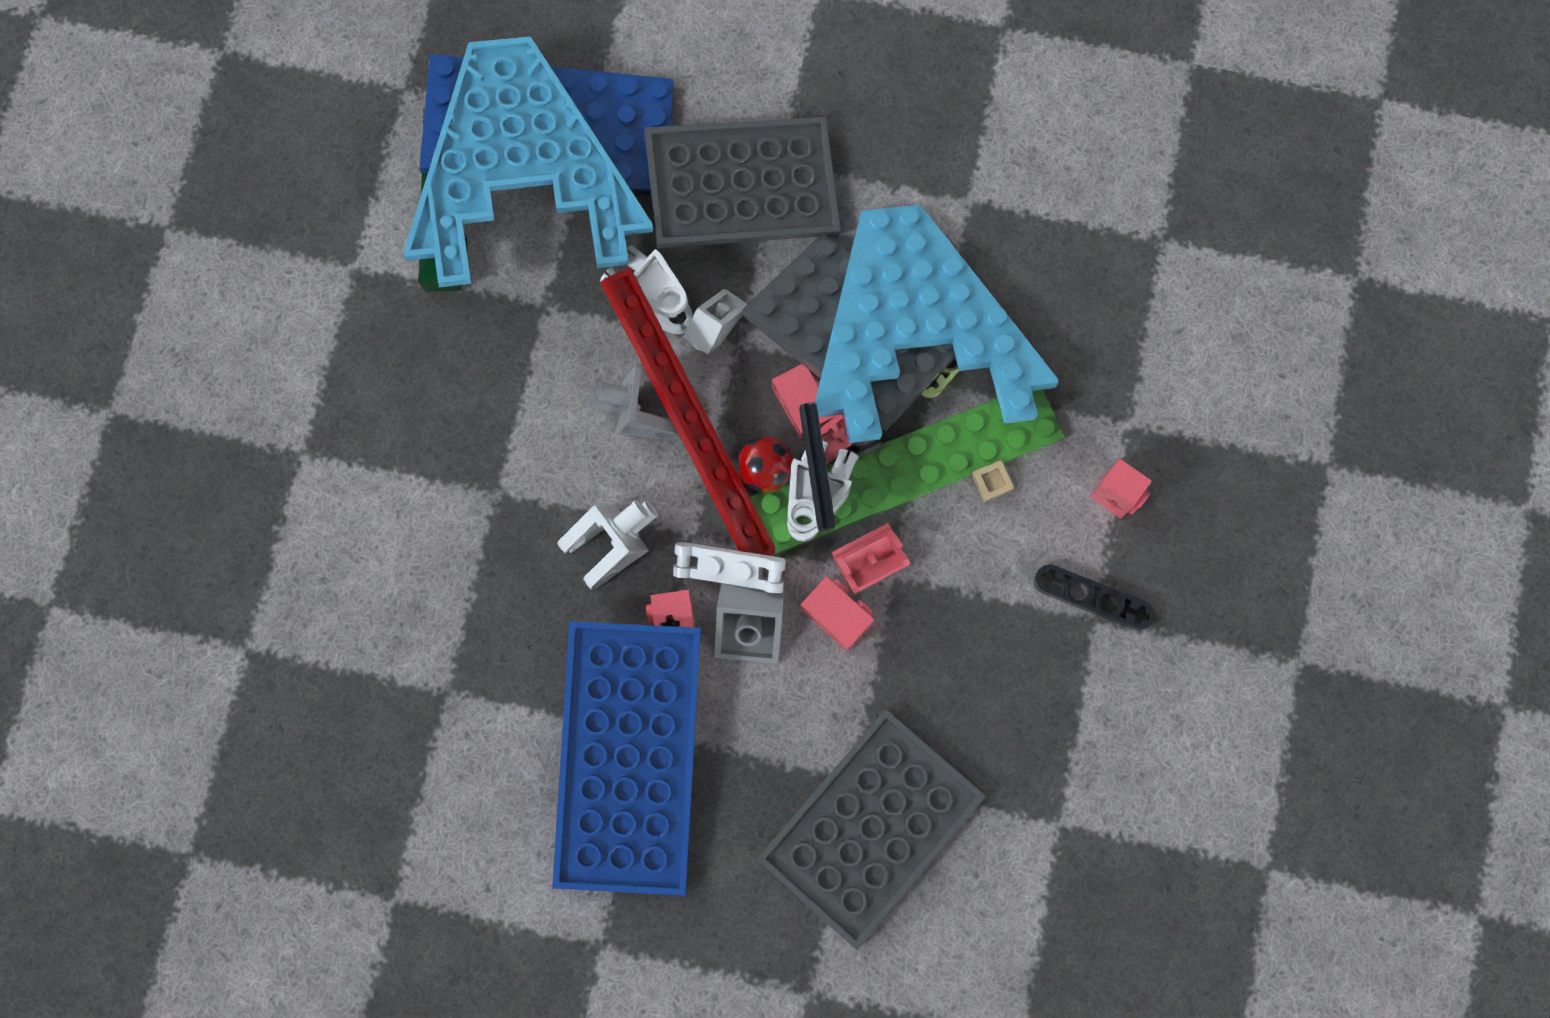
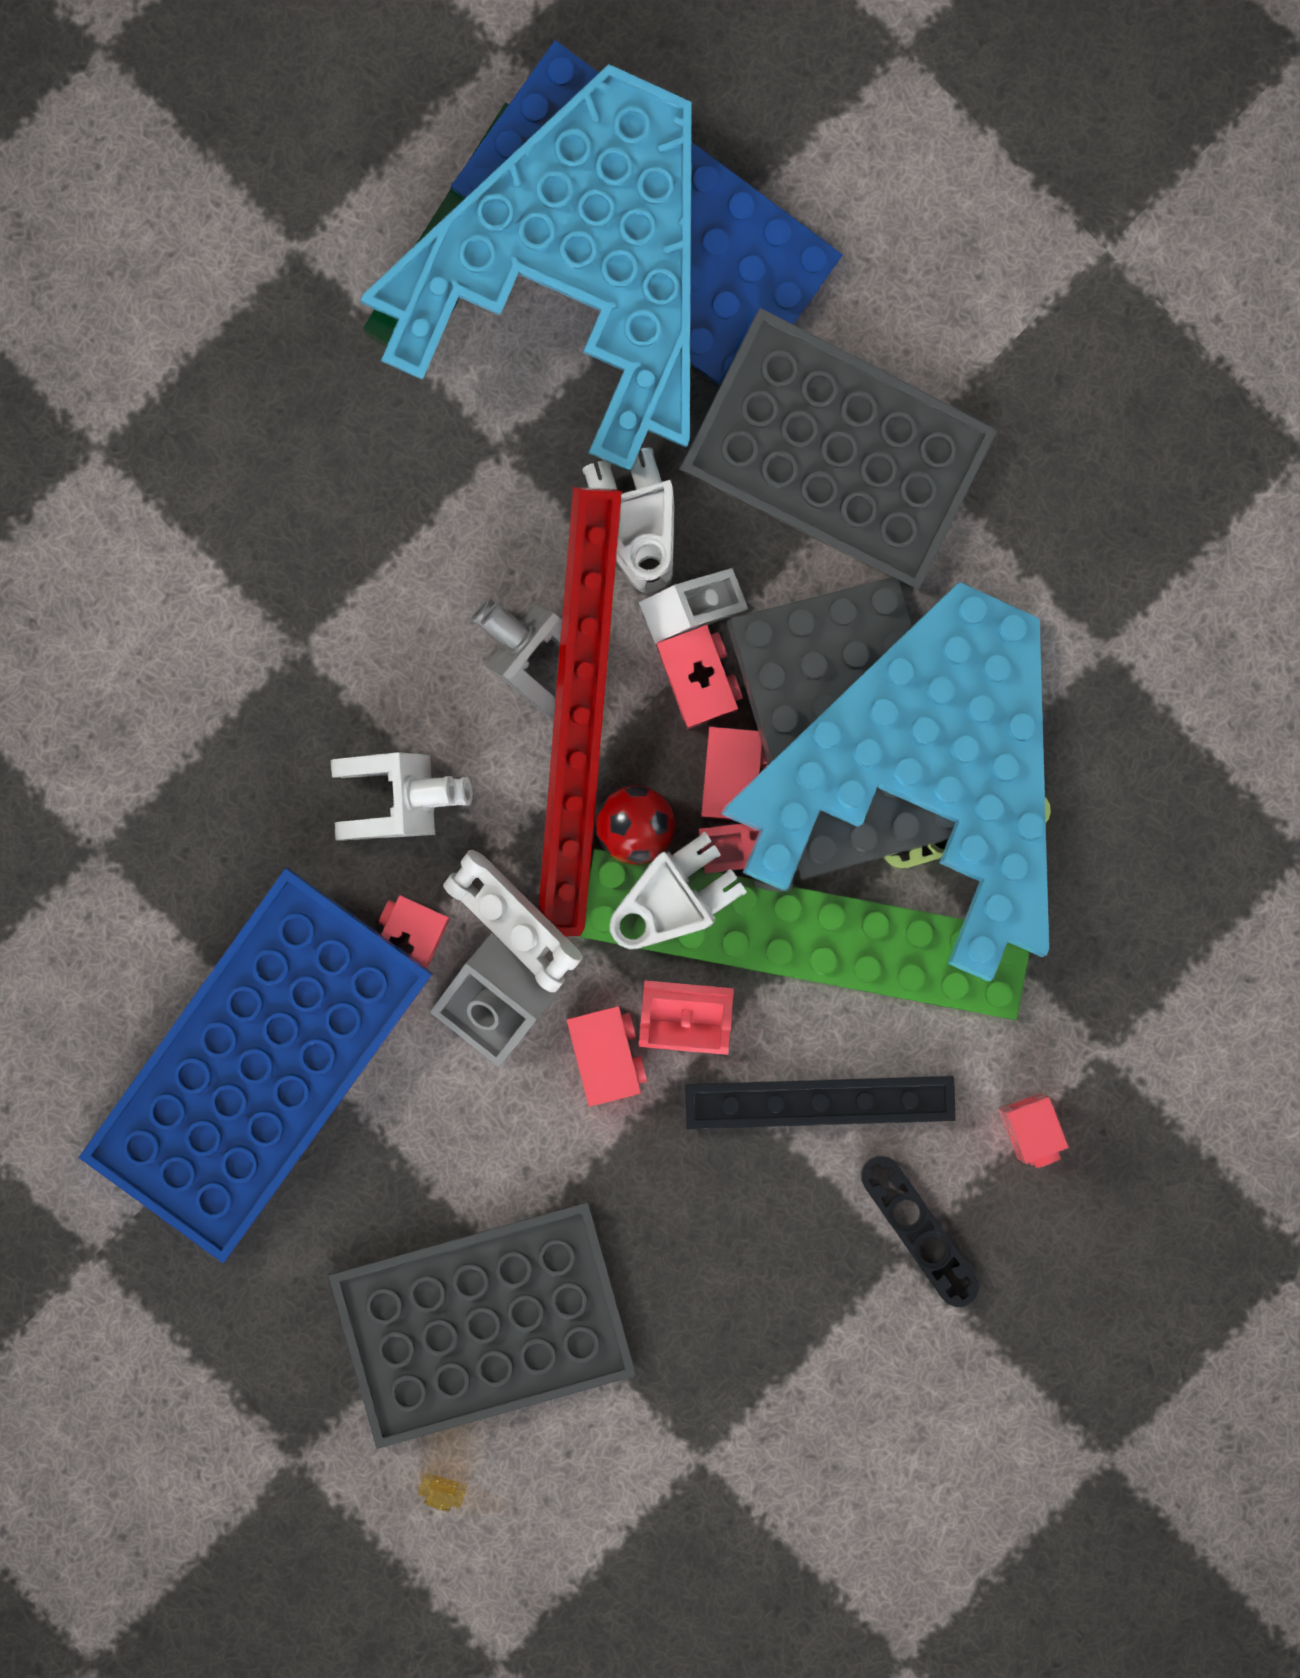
camera: 30 degrees right, 10 degrees up
(752, 373) = (697, 703): none -> coral brick
(817, 466) = (683, 880): black axle -> none
(915, 951) = (441, 1492): none -> clear yellow plate
(983, 559) = (820, 1102): none -> black plate
(992, 481) = (894, 1017): tan plate -> none

